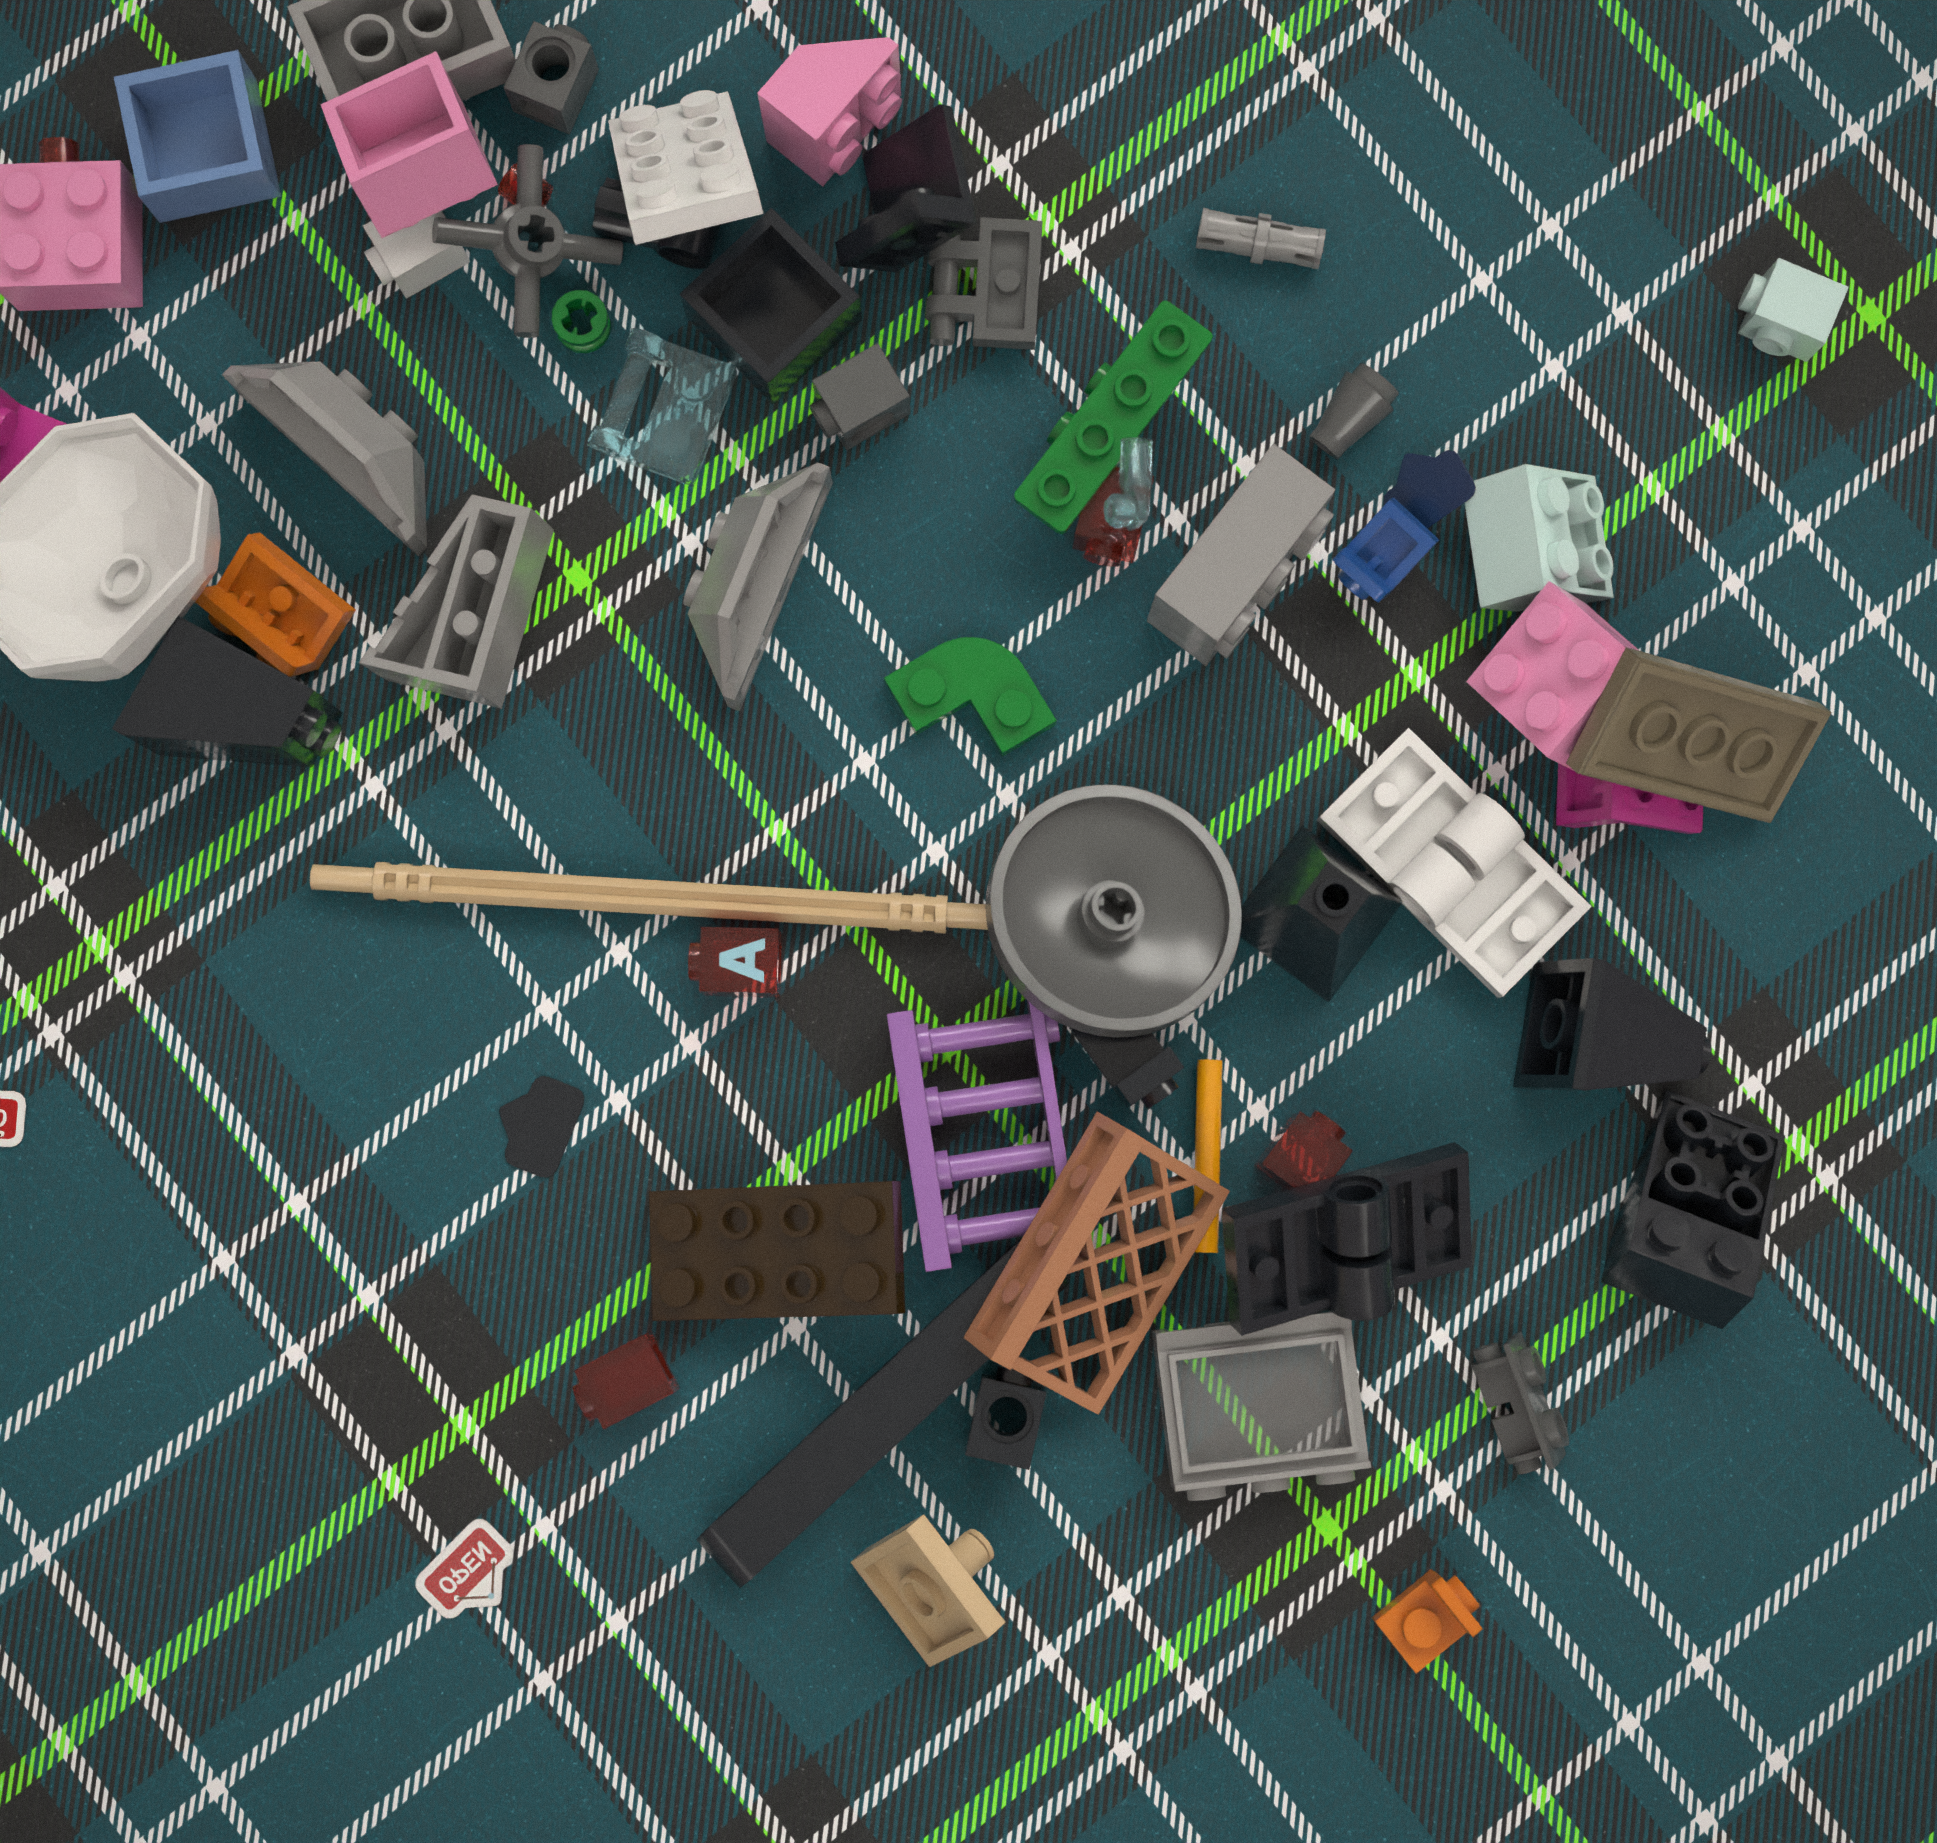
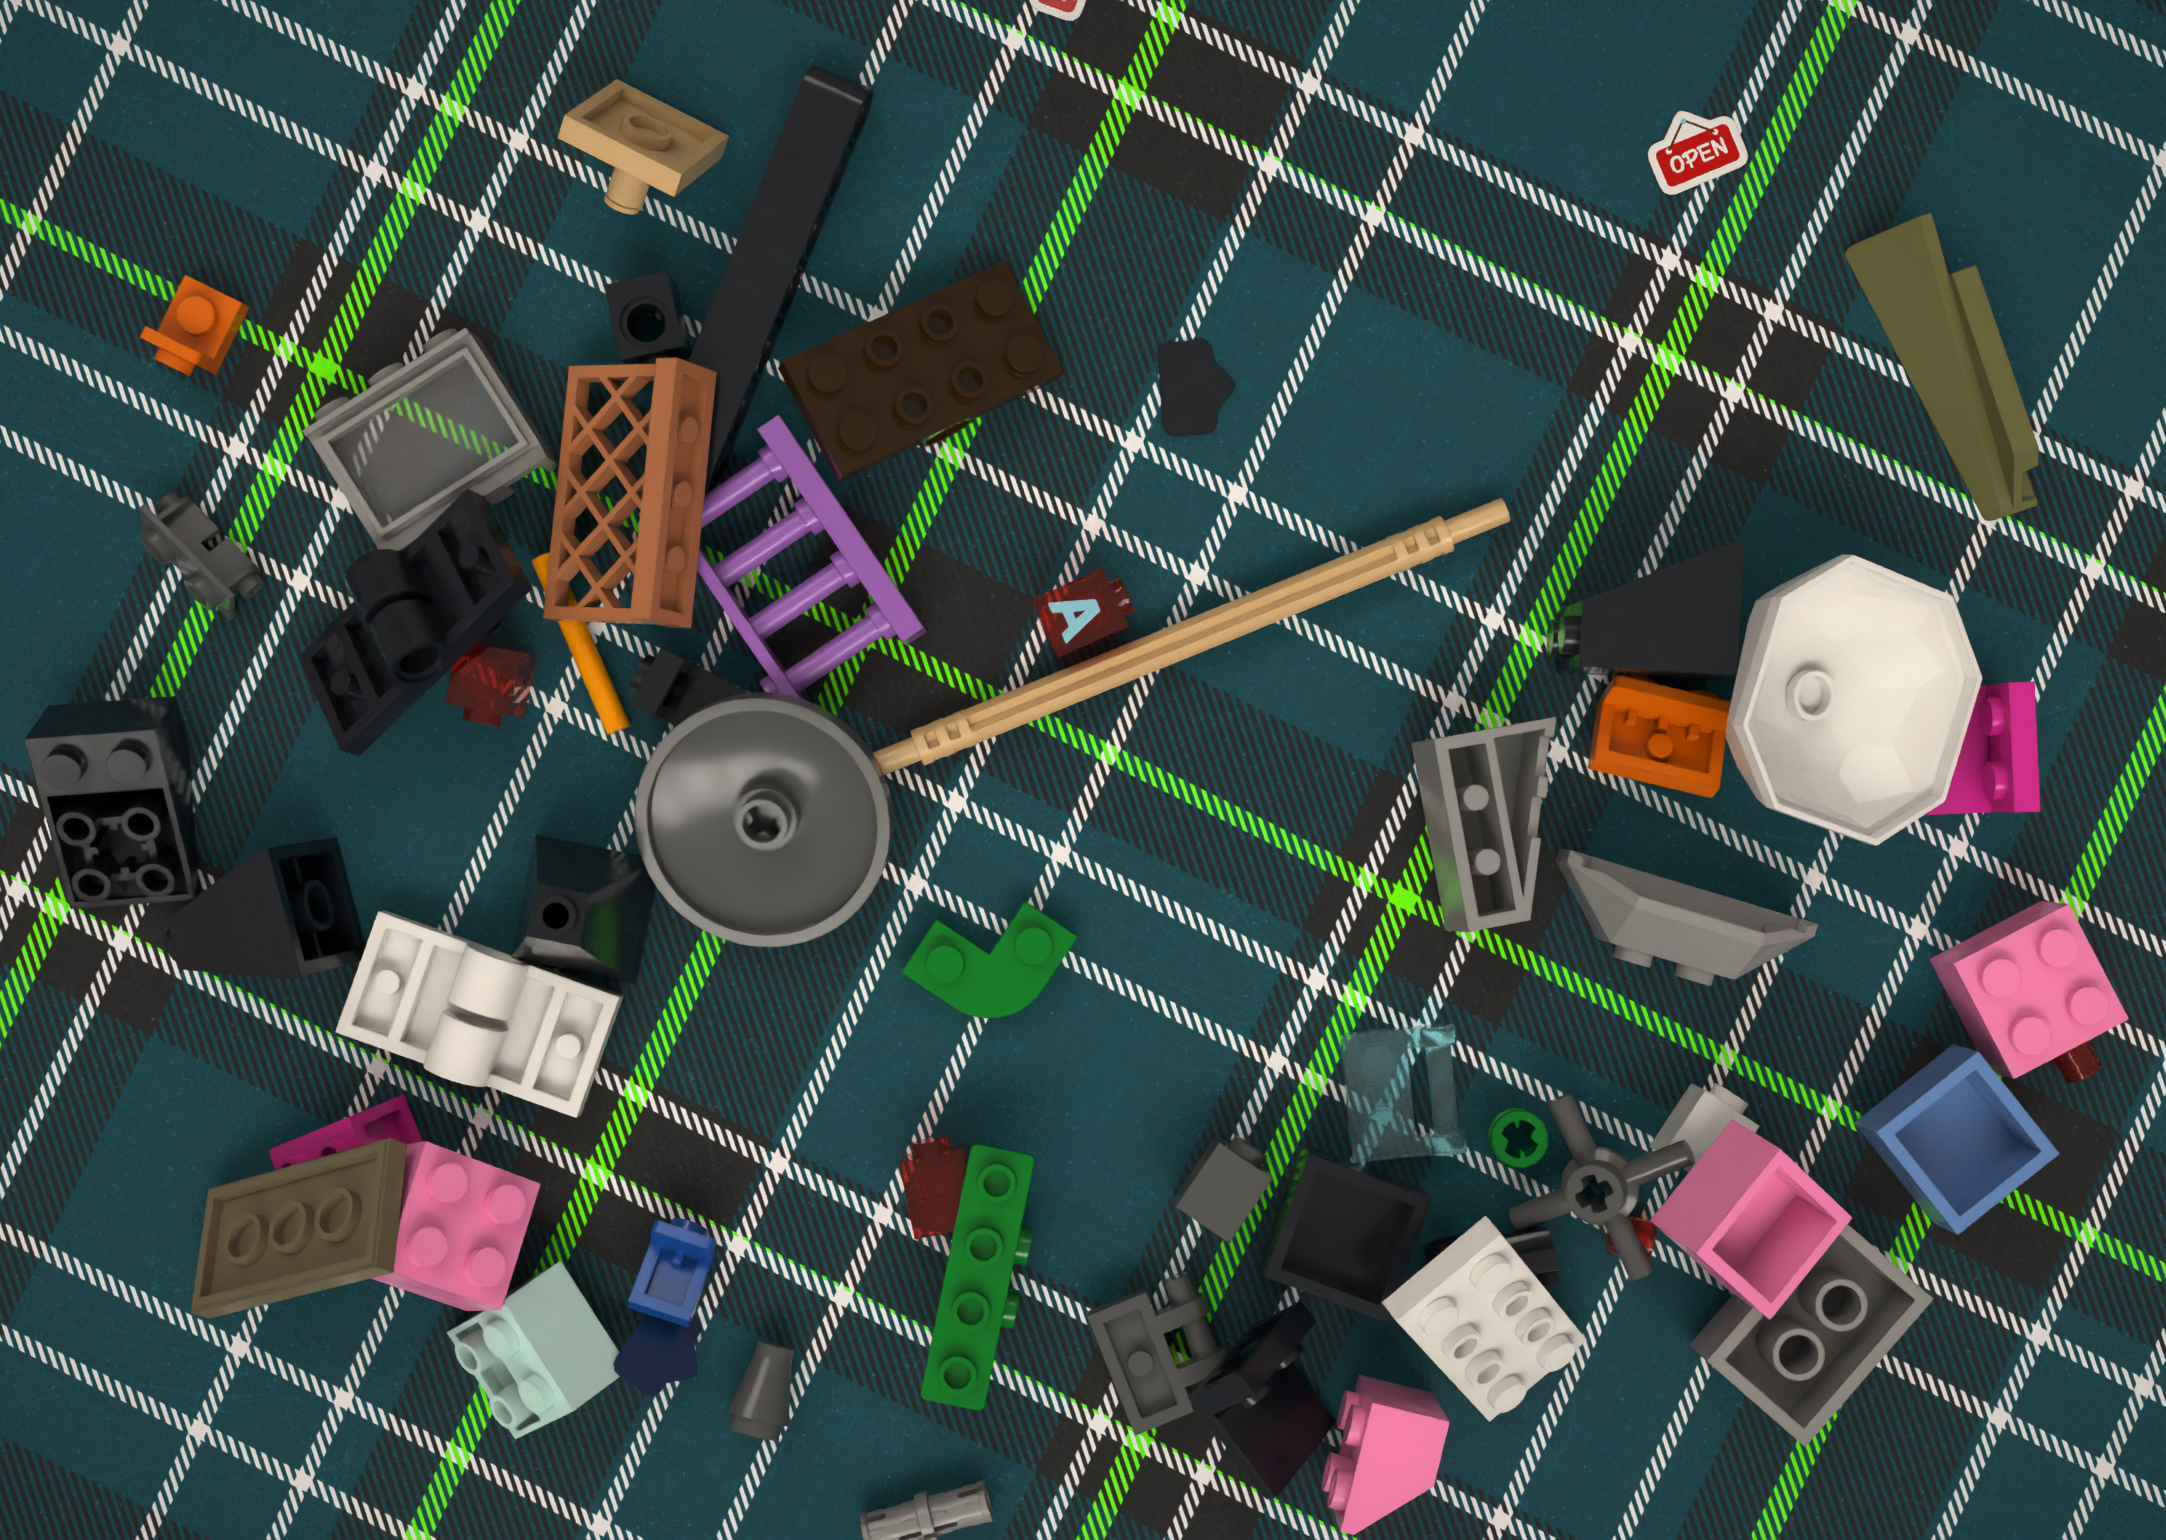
camera: 160 degrees right, 5 degrees up
(556, 101) = (1640, 1334): dark grey brick -> none
(624, 1381) = (1002, 195): clear red brick -> none
(752, 573) = (1243, 973): light grey wedge -> none
(1132, 504) = (919, 1200): clear light blue arm -> none
(1243, 557) = (796, 1202): light grey brick -> none

